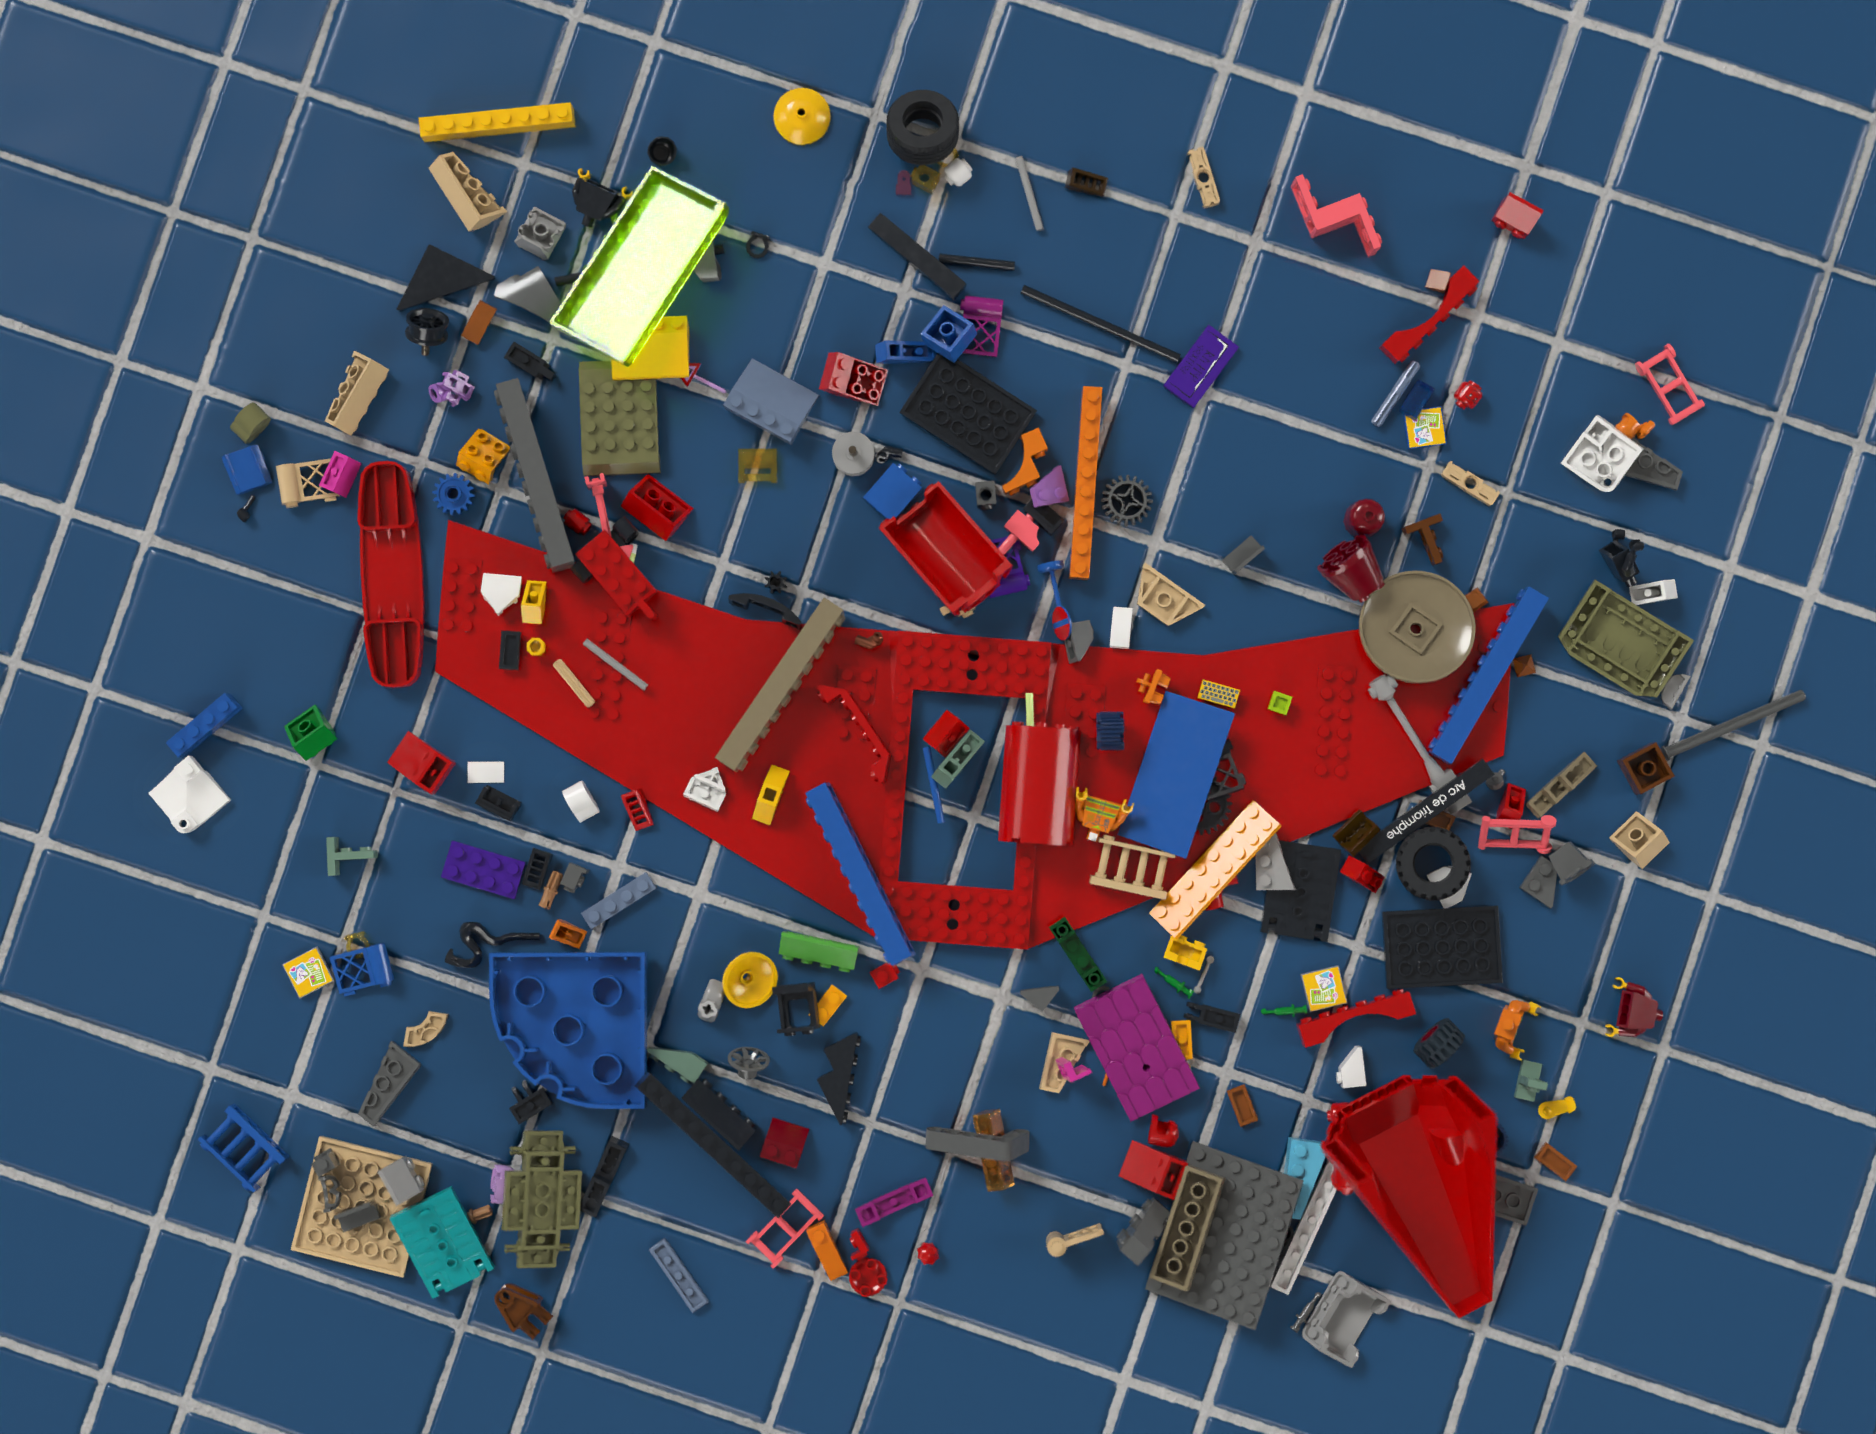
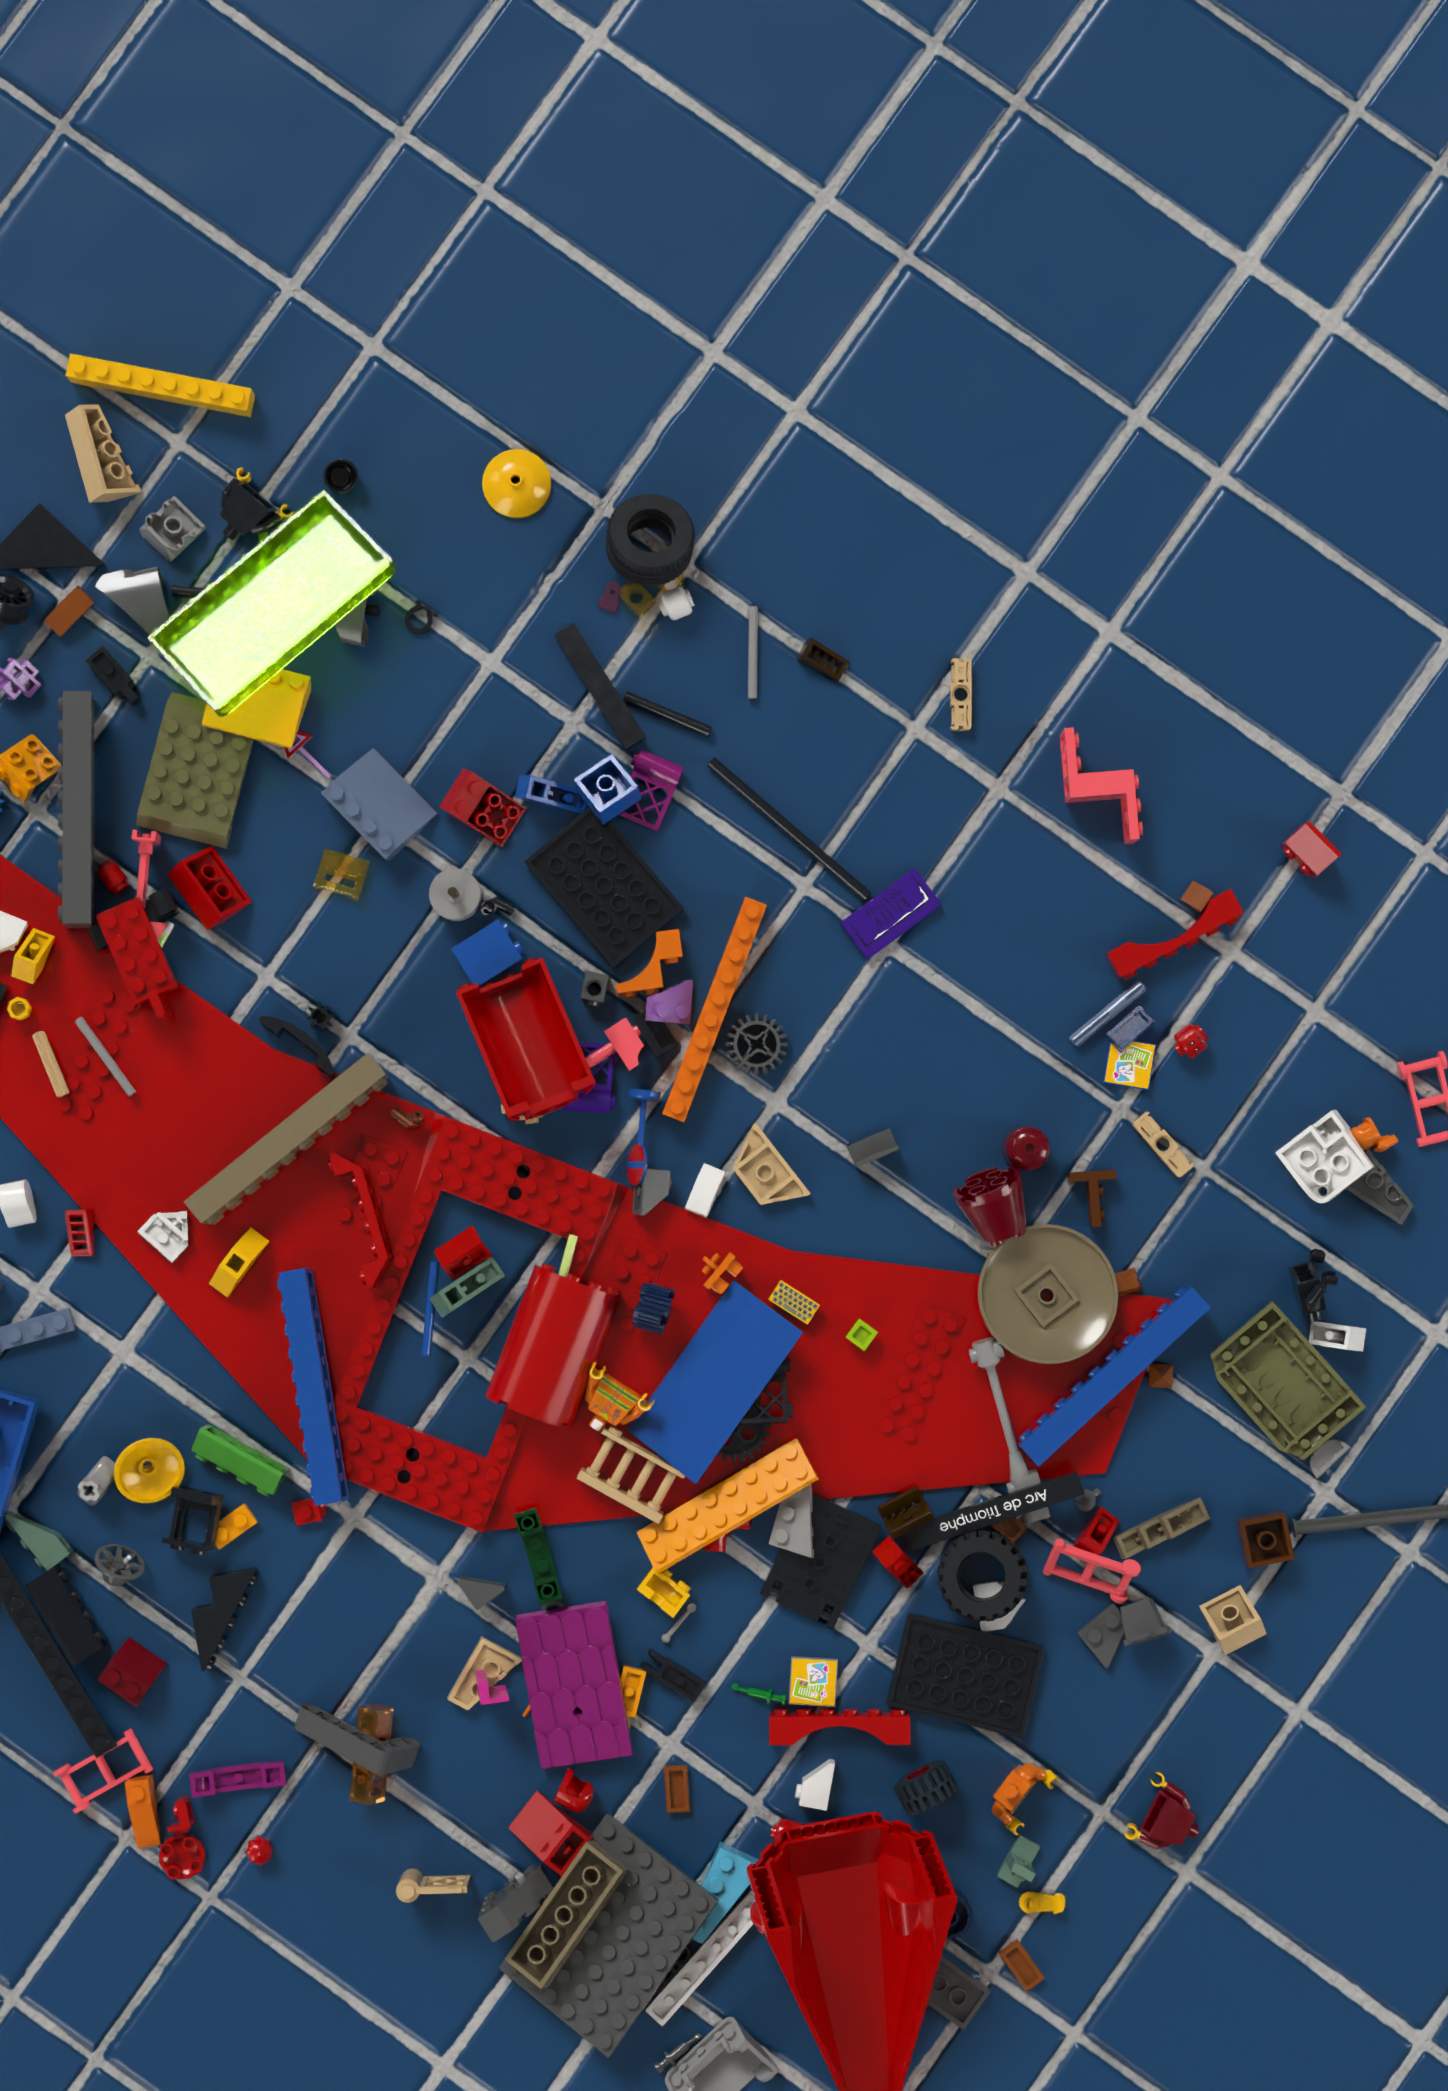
camera: 15 degrees right, 0 degrees up
(1175, 983) = (642, 1623): green piece -> none

